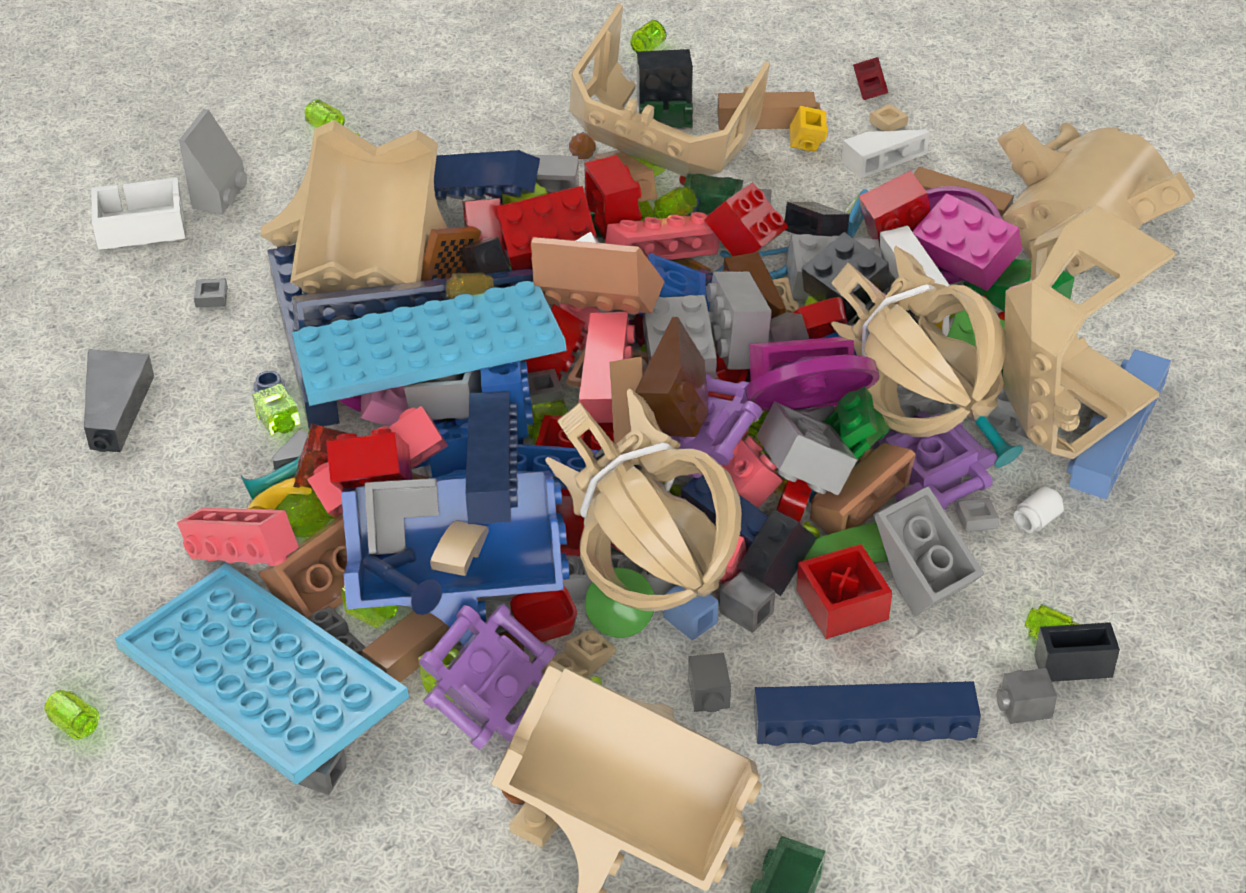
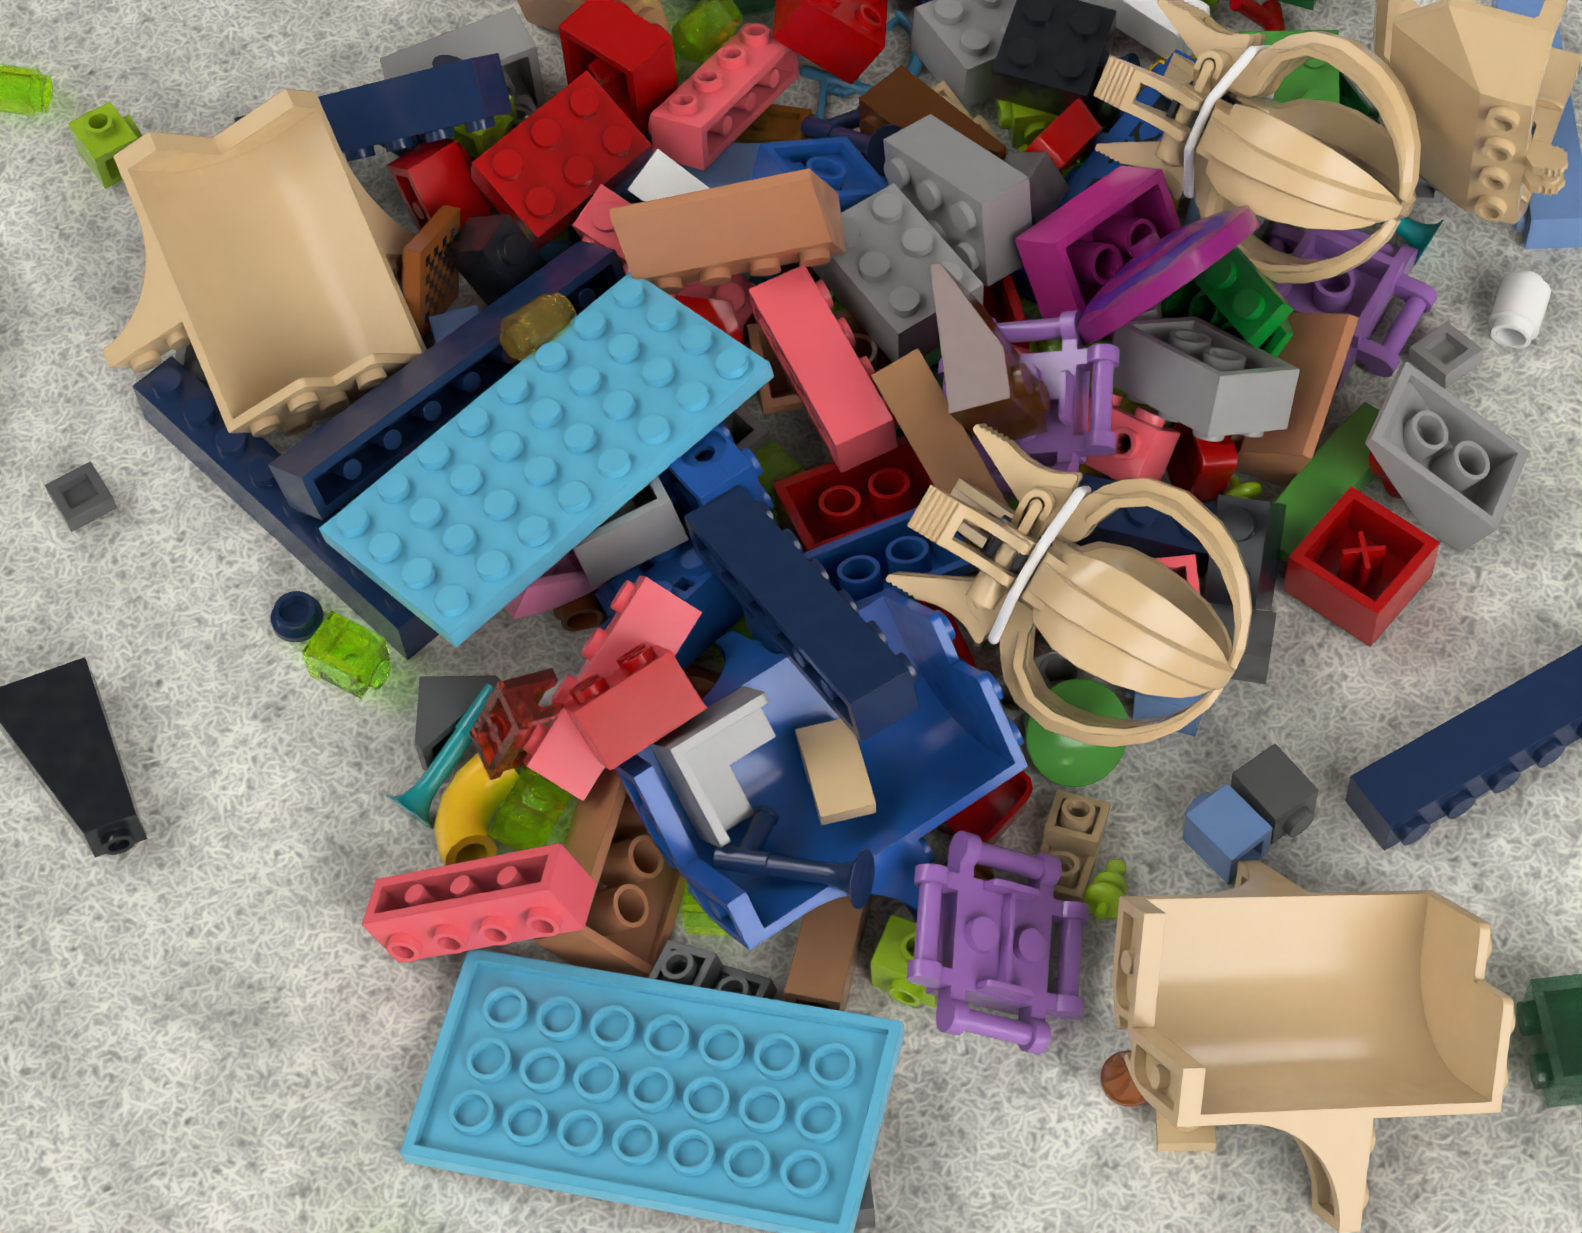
camera: 25 degrees left, 15 degrees up
(668, 685) = (1225, 830): none -> medium blue brick

